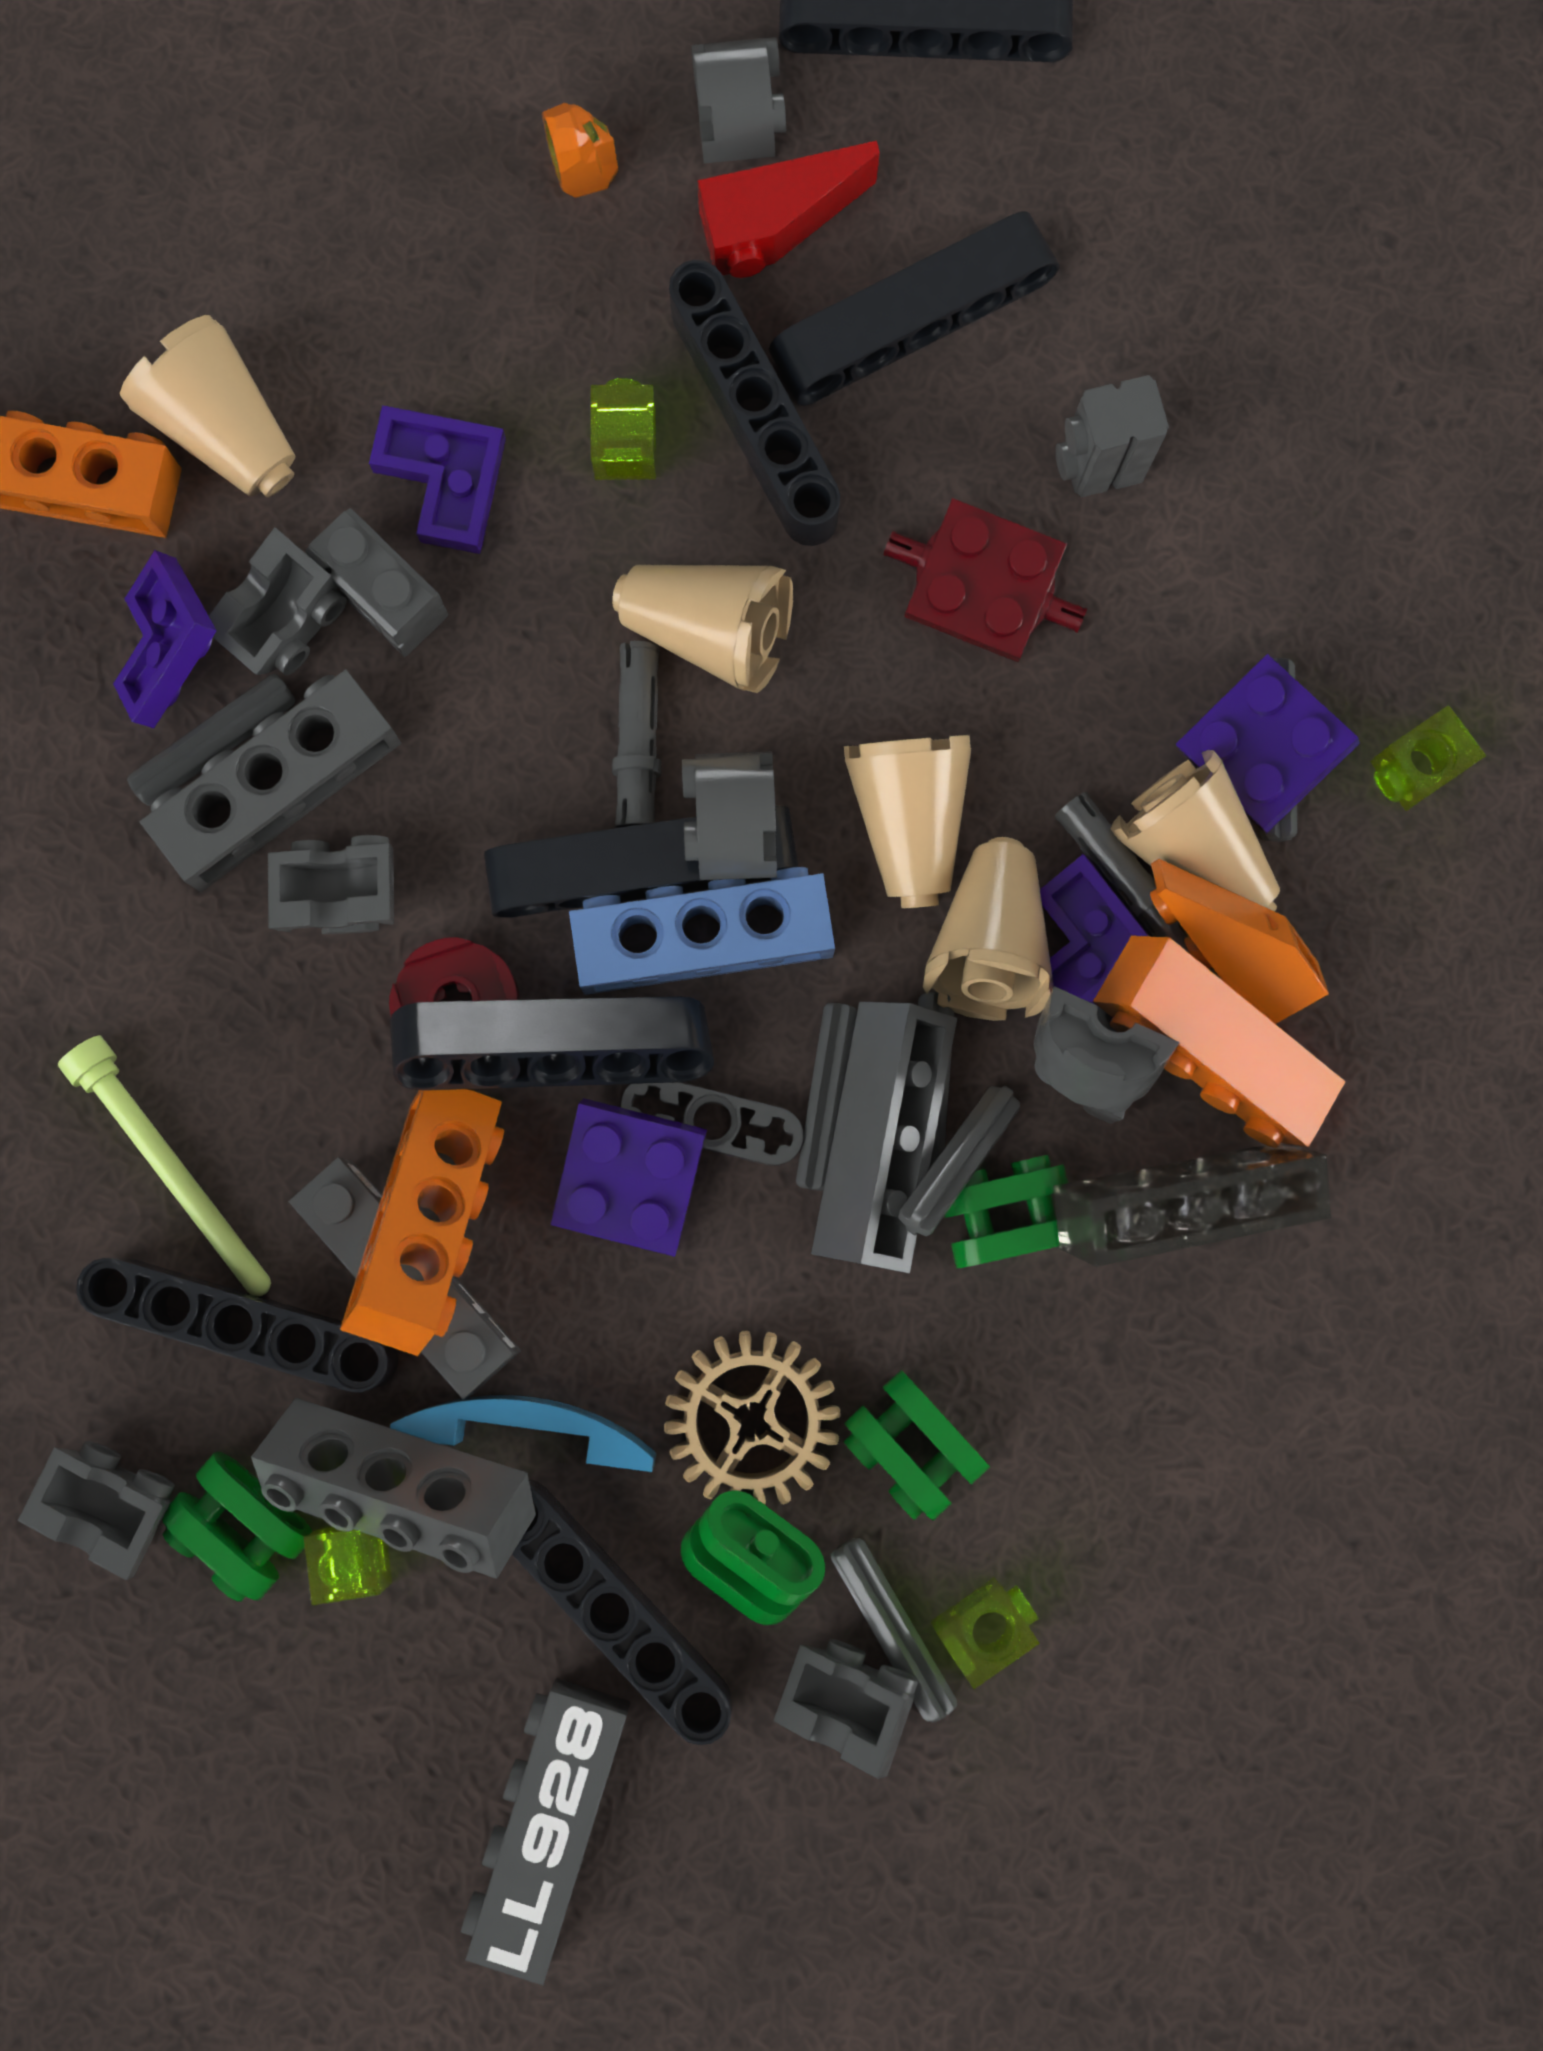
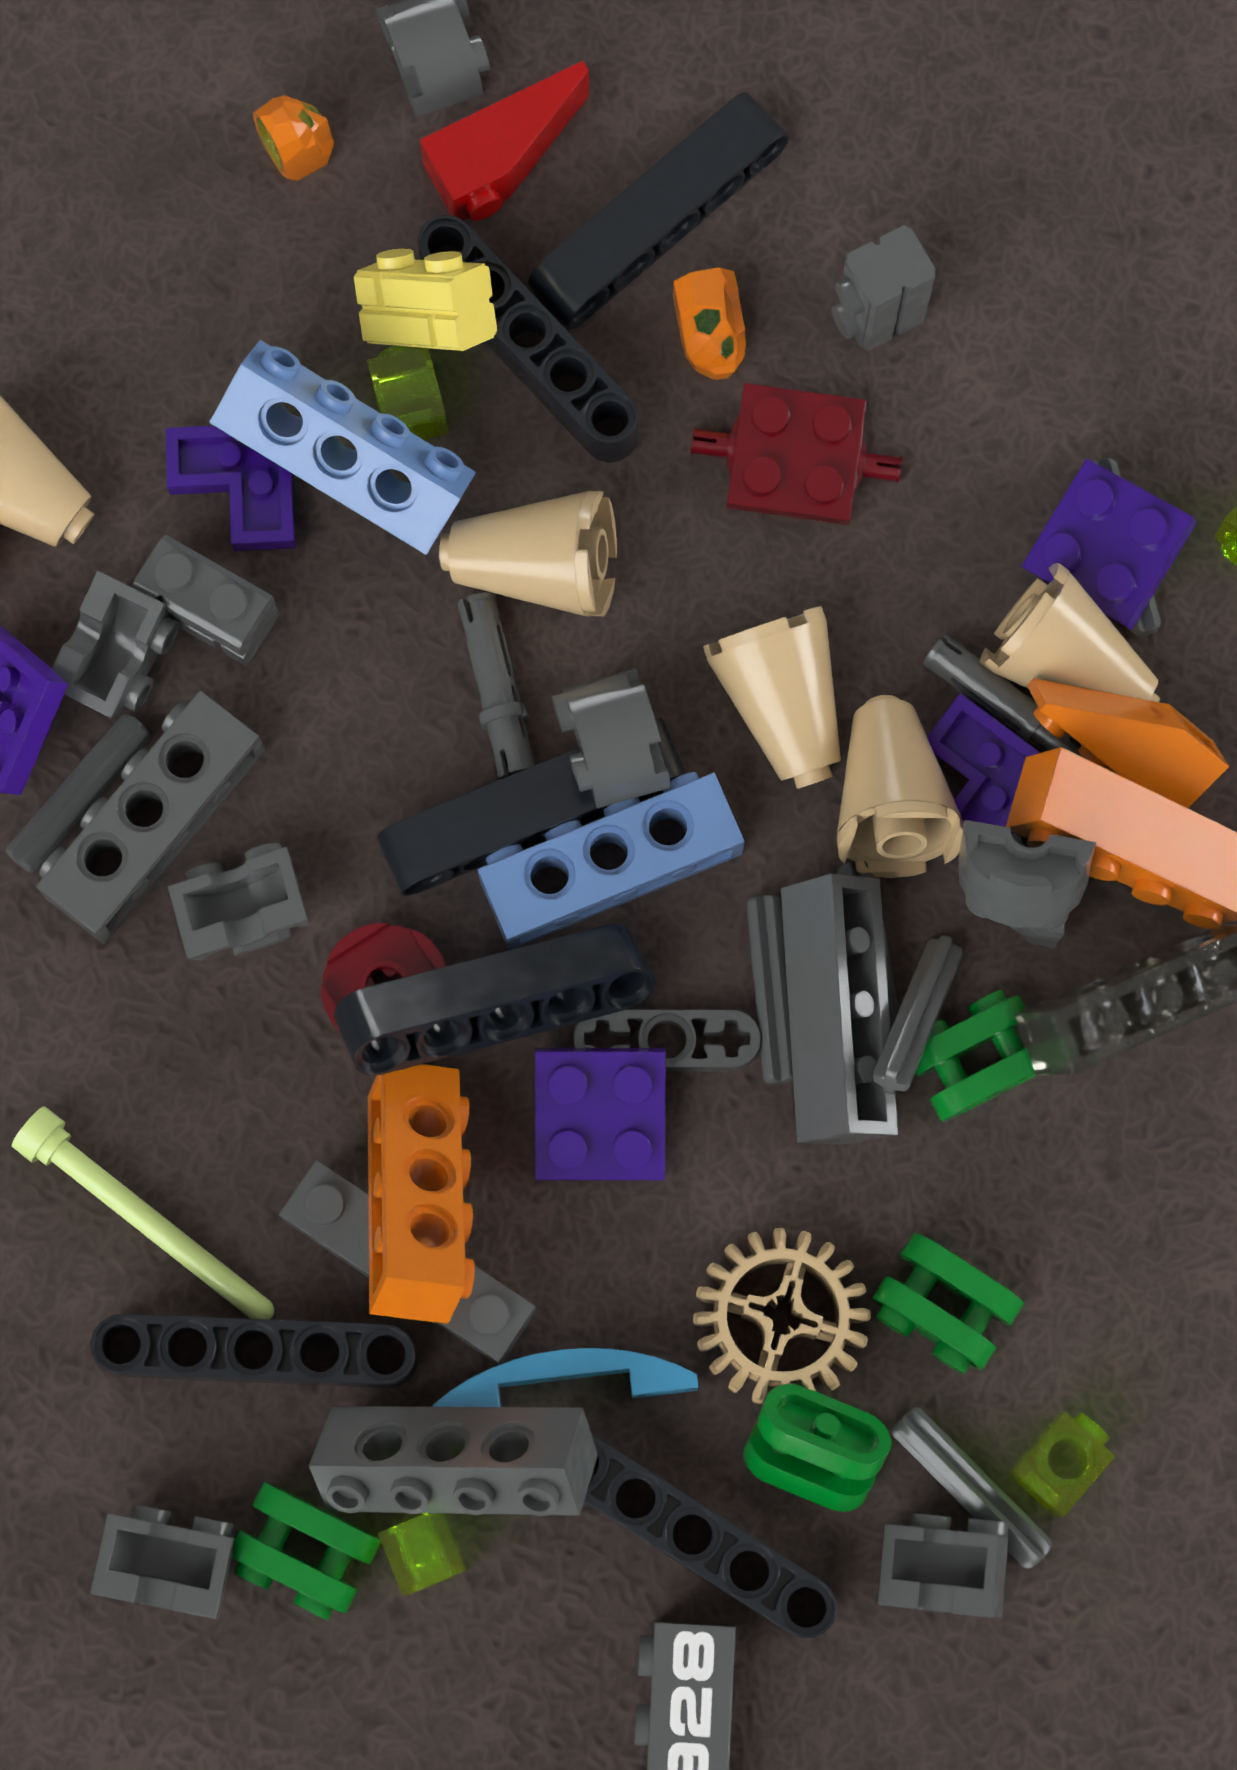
camera: 10 degrees left, 5 degrees down
(511, 456) = (310, 449): none -> medium blue brick
(661, 340) = (425, 301): none -> light yellow brick
(936, 429) = (710, 321): none -> orange rock

